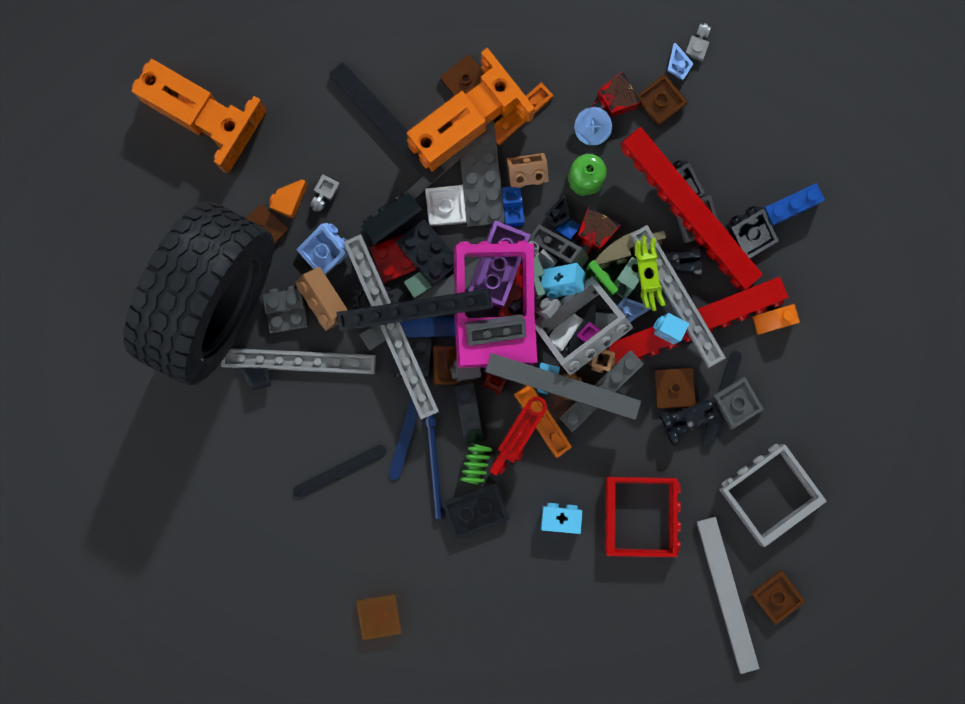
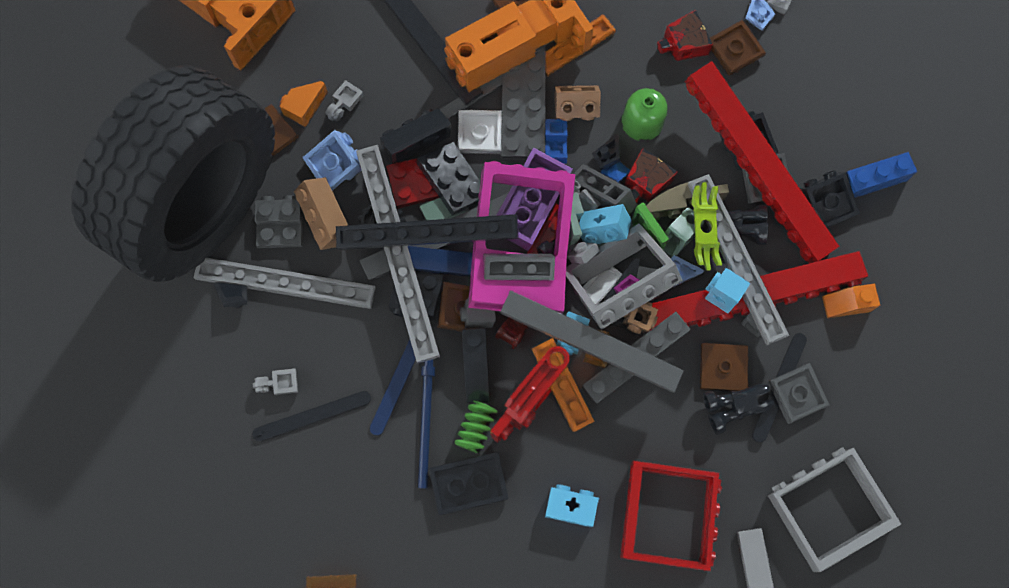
camera: 10 degrees right, 10 degrees down
(311, 446) = (283, 382): none -> light grey plate
(593, 126) = (656, 64): light blue tile -> none

